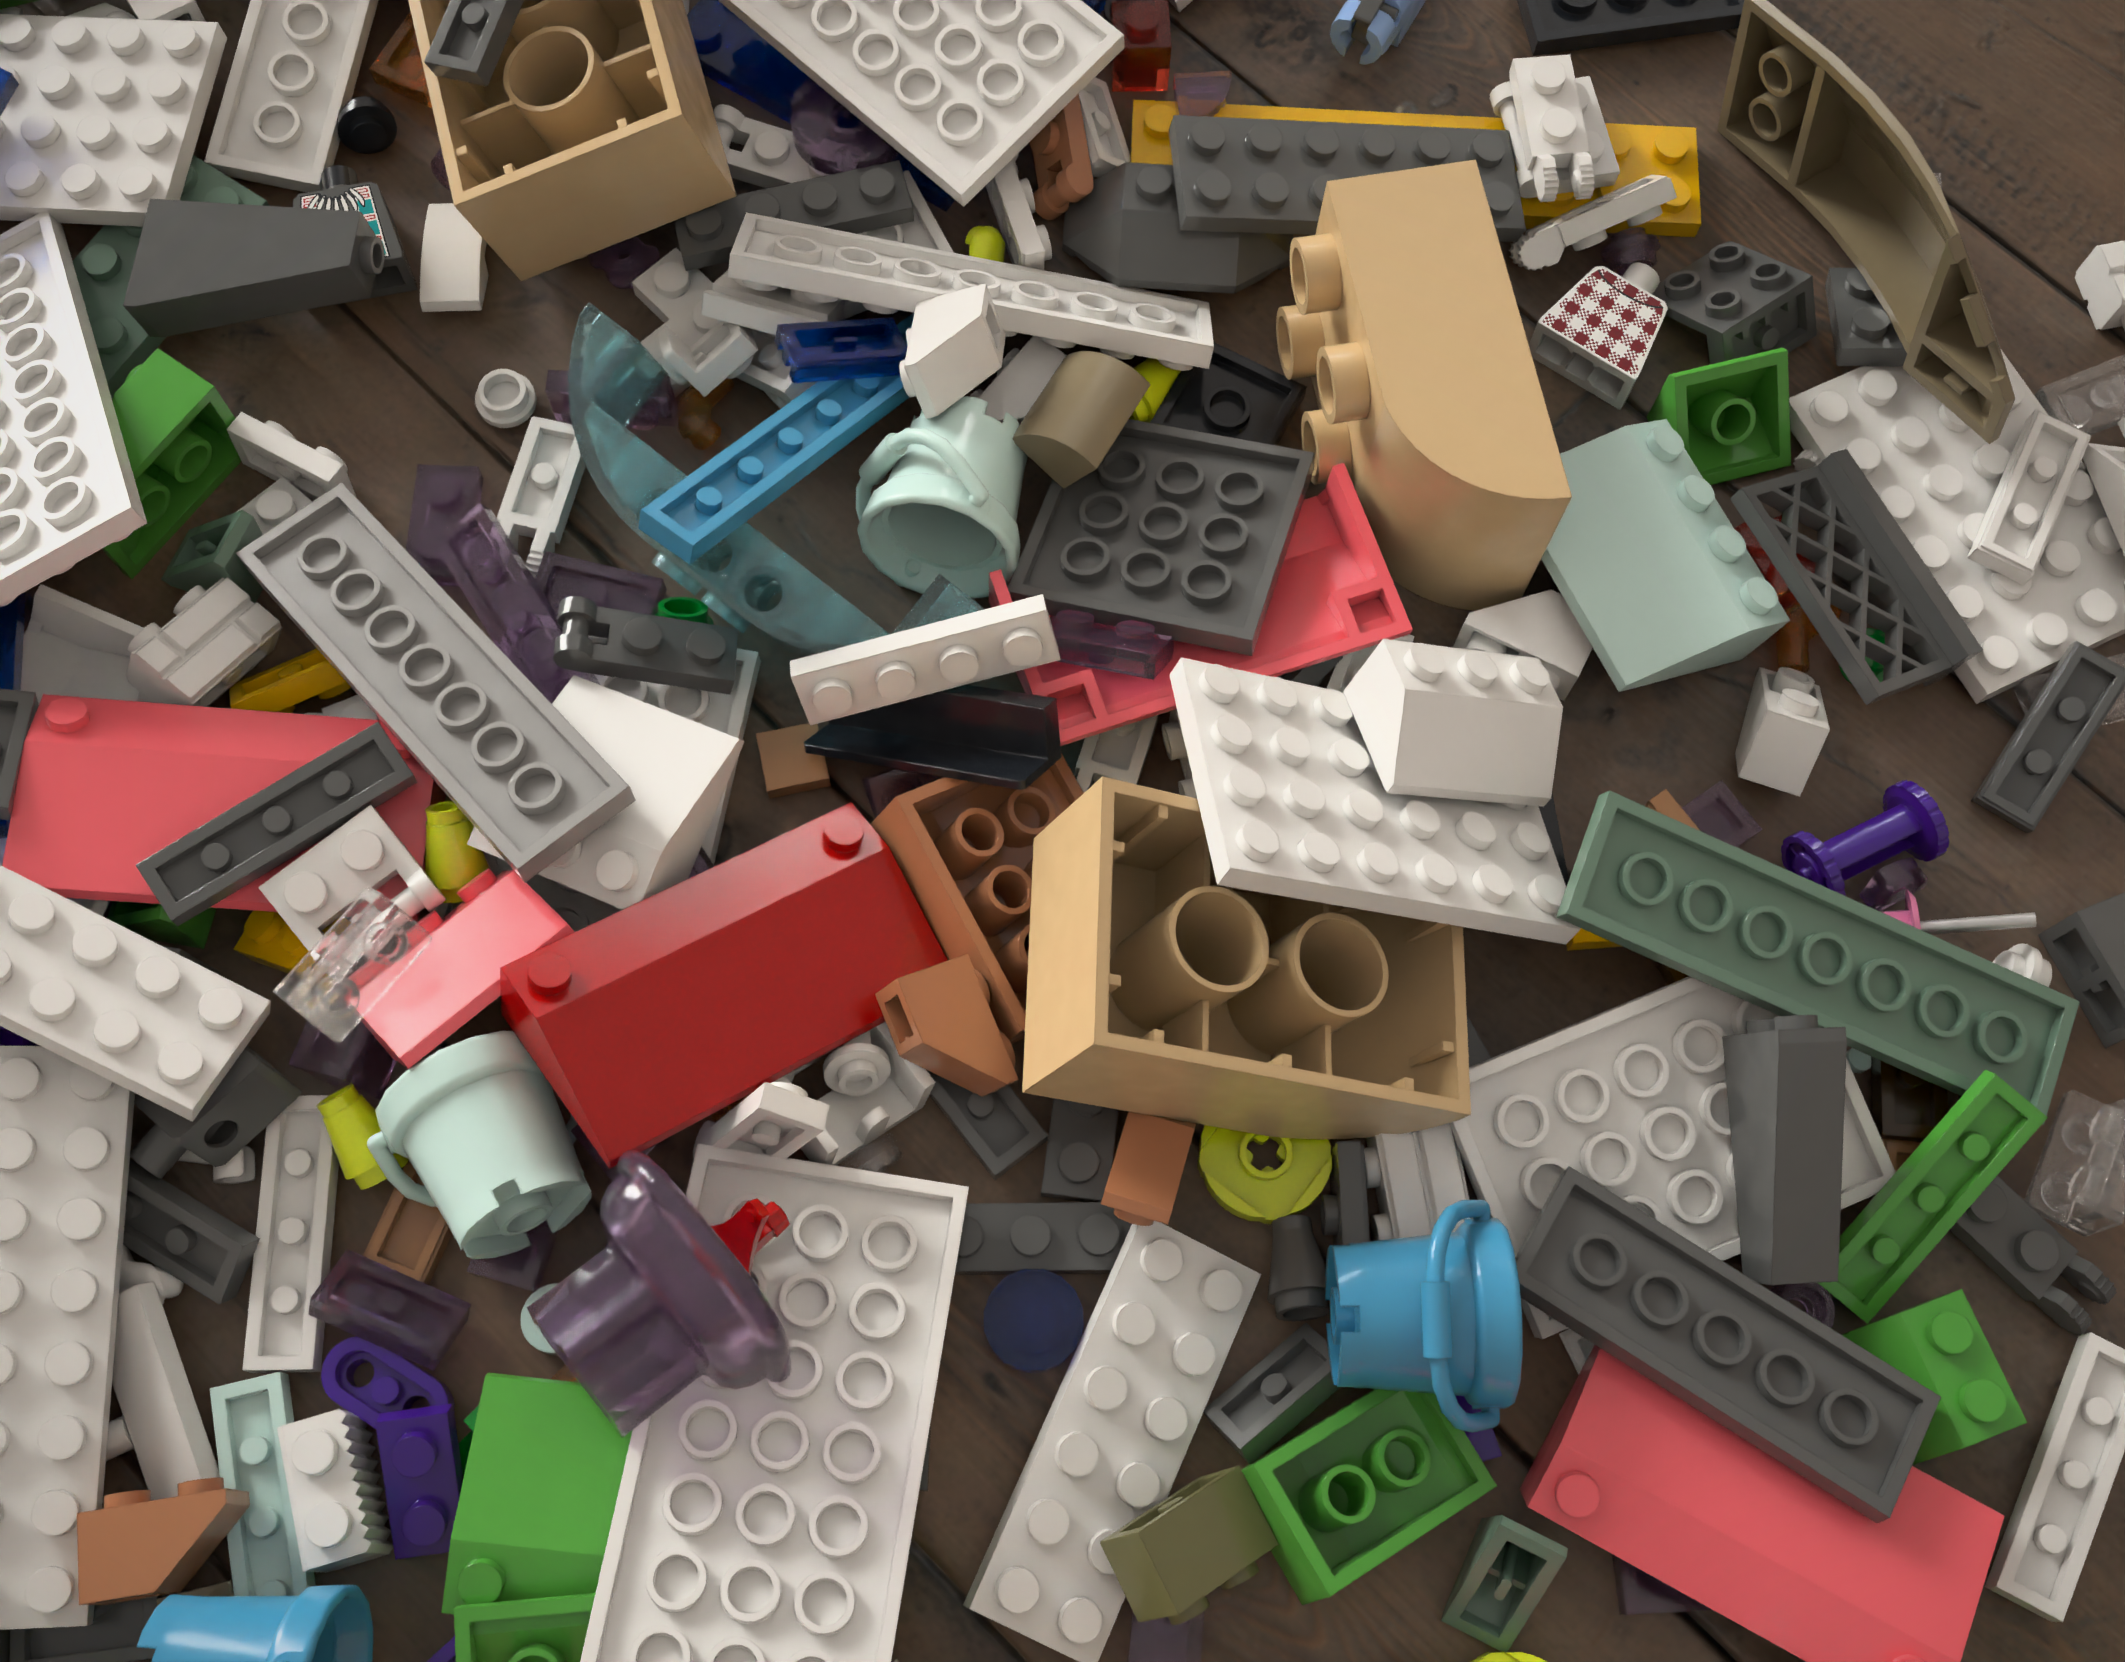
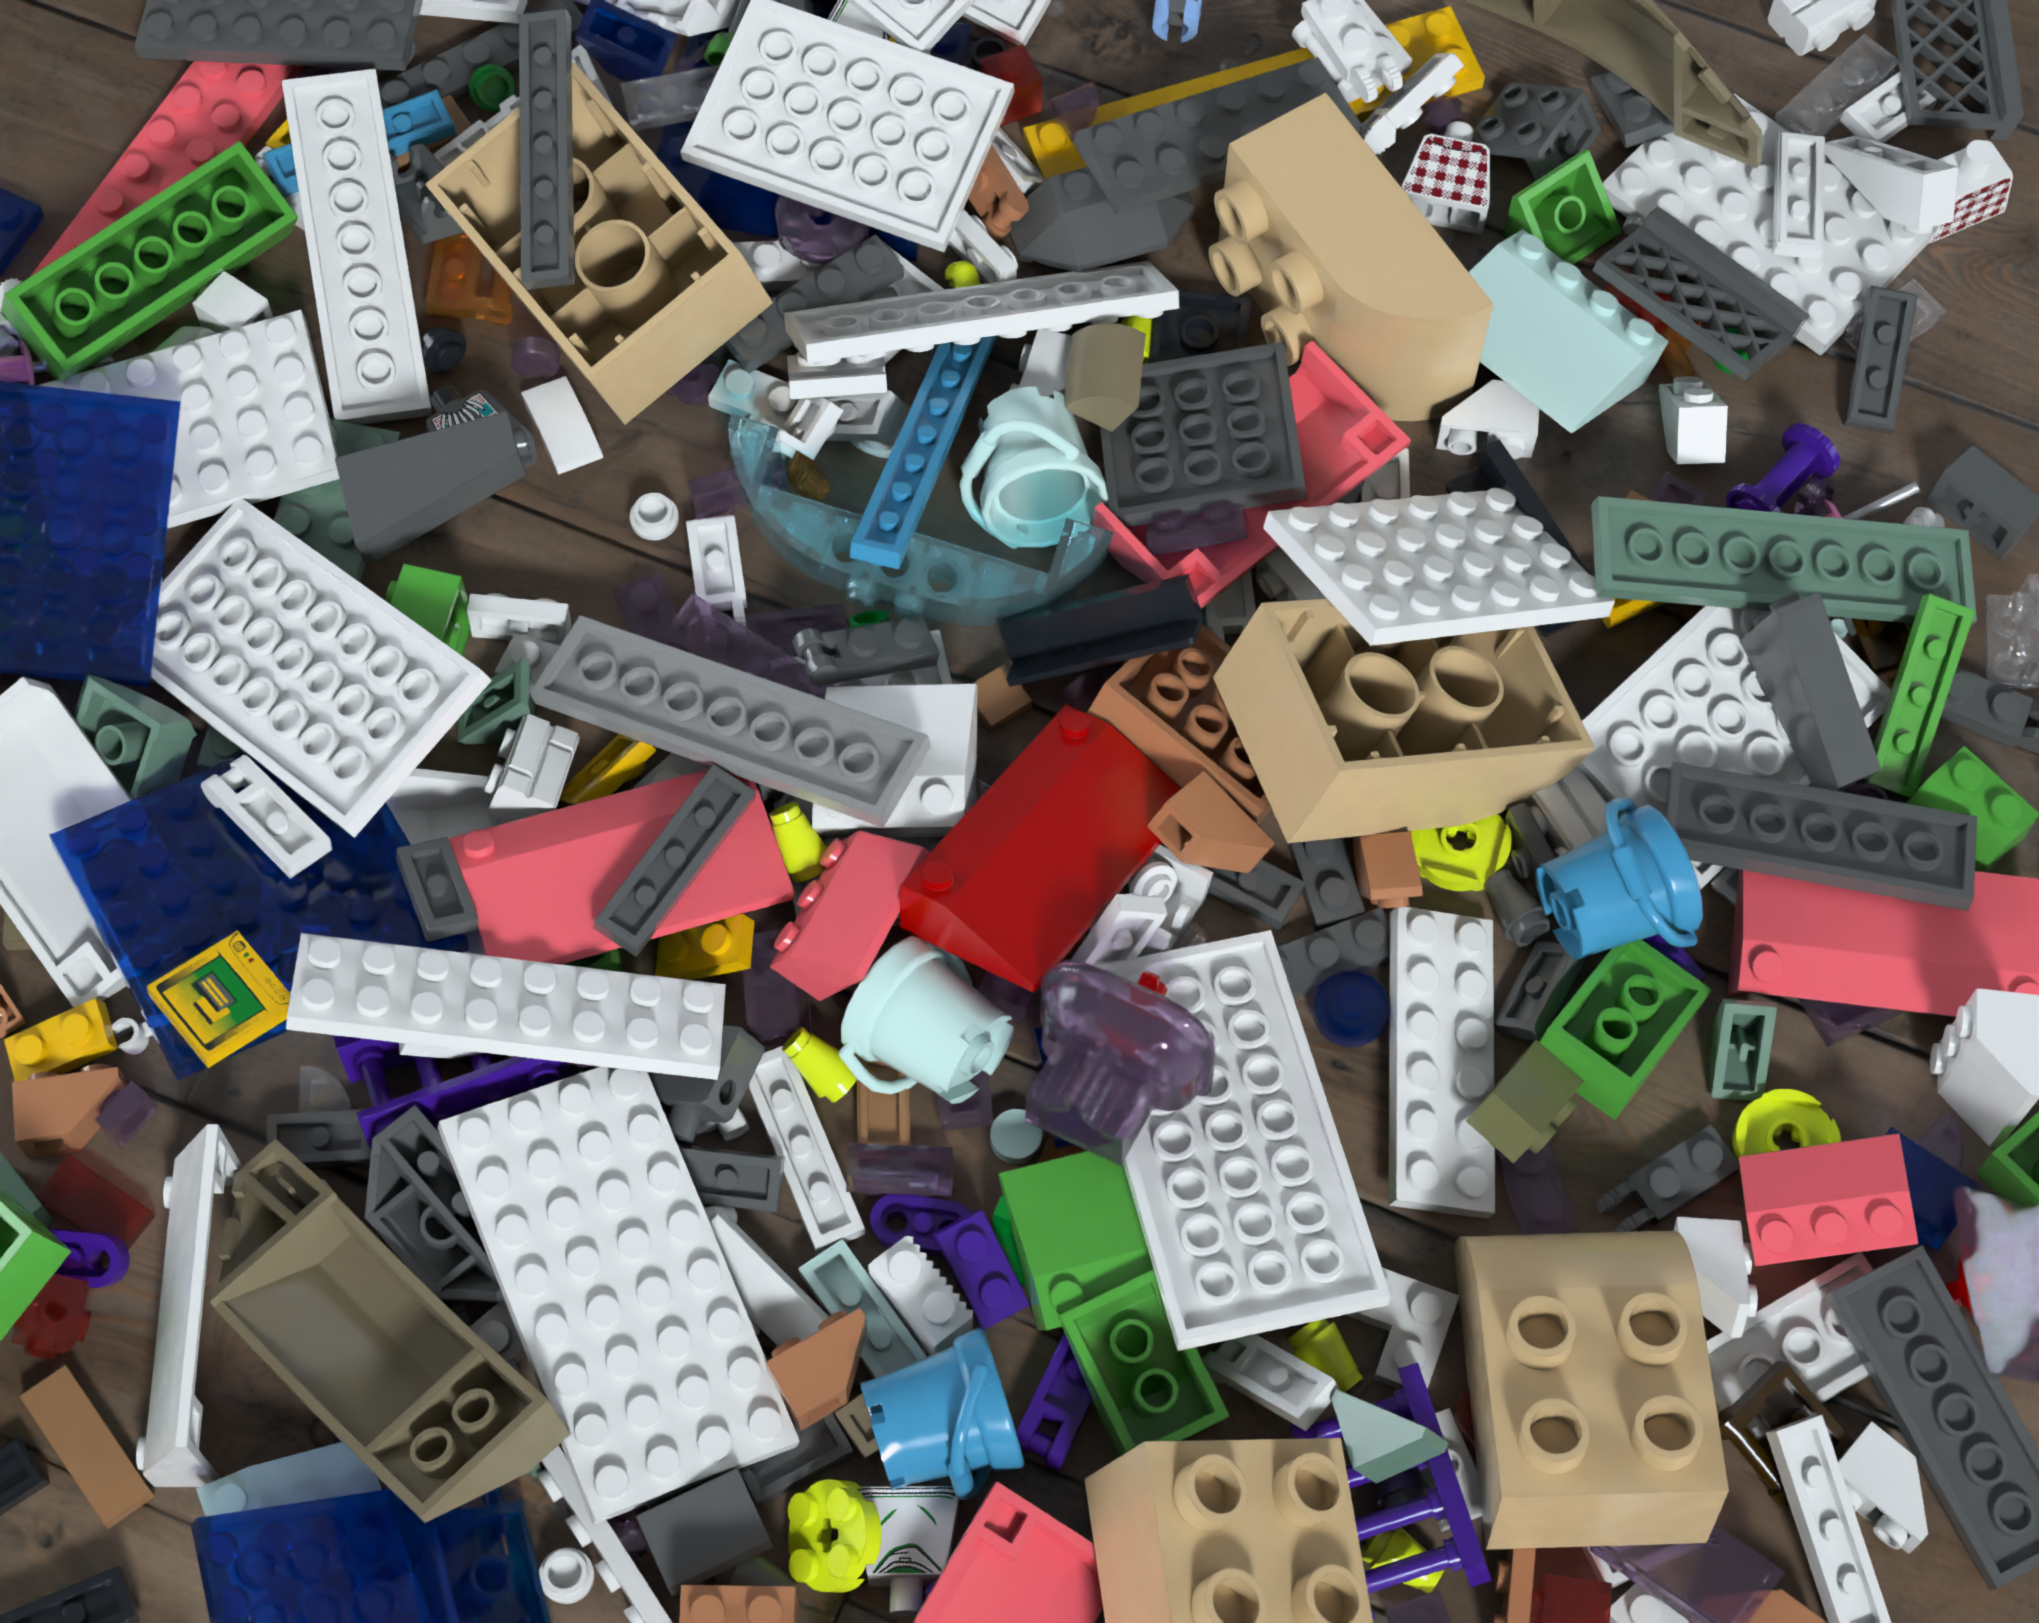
camera: 20 degrees left, 5 degrees down
(339, 869) = (732, 883): white plate -> none
(353, 964) = (784, 926): clear bracket -> none
(841, 349) = (917, 386): clear blue tile -> none
(925, 660) = (1082, 582): white plate -> none
(951, 348) = (994, 356): white slope -> none
(1458, 722) = (1473, 490): white slope -> none

